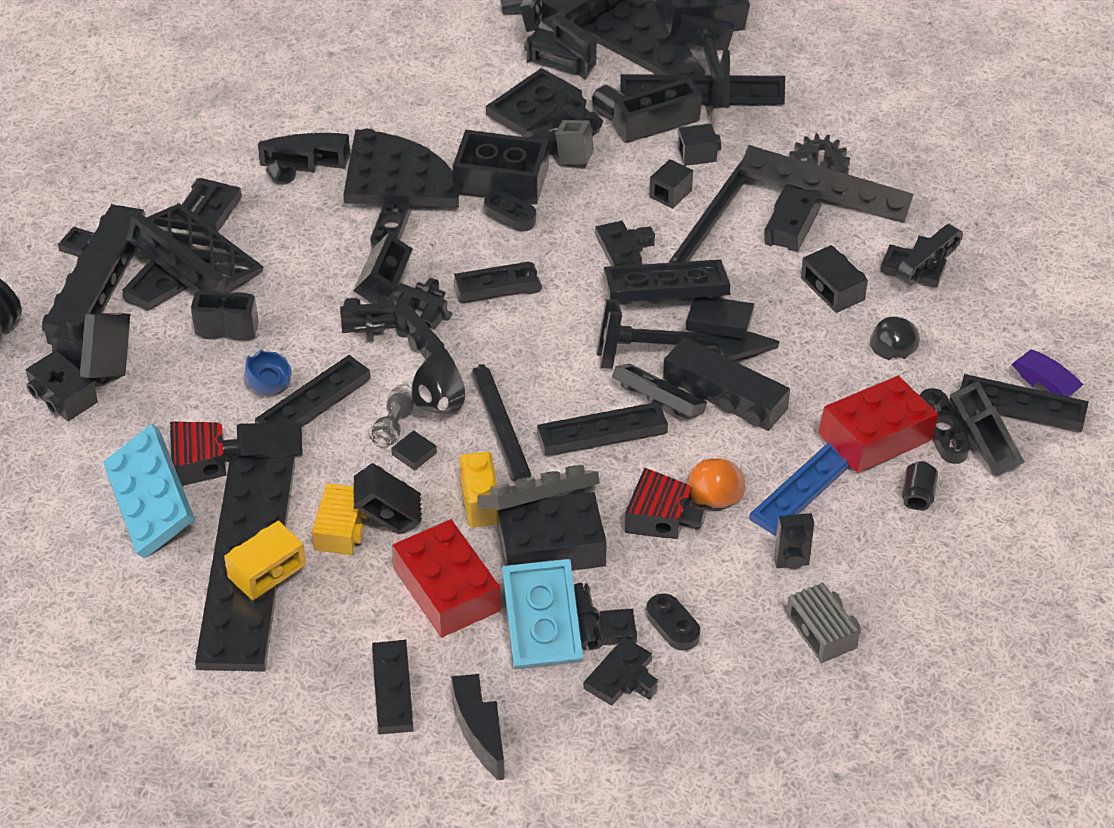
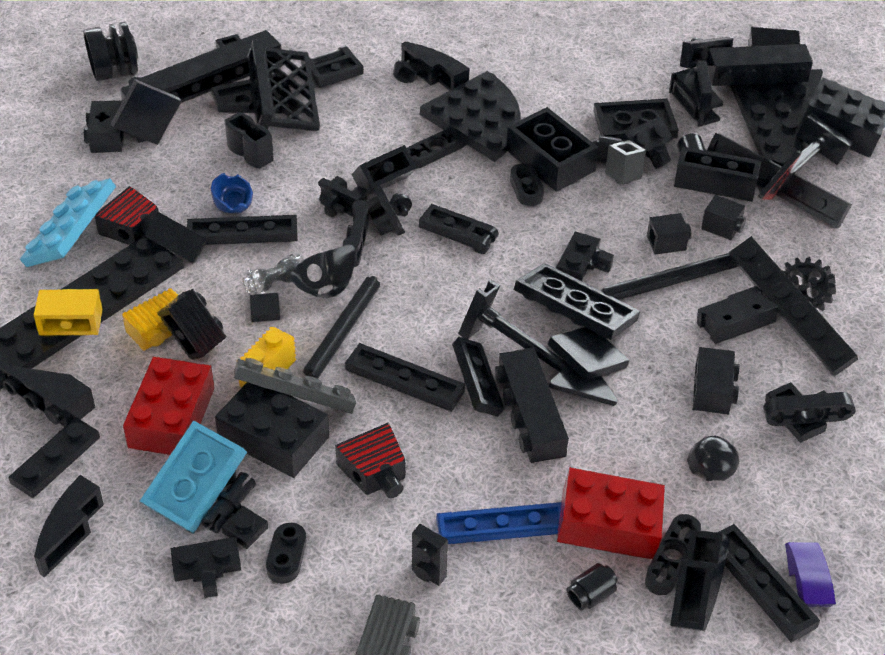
camera: 40 degrees right, 0 degrees up
(330, 637) = (53, 393): none -> black slope
(716, 483) = (436, 472): orange hair -> none

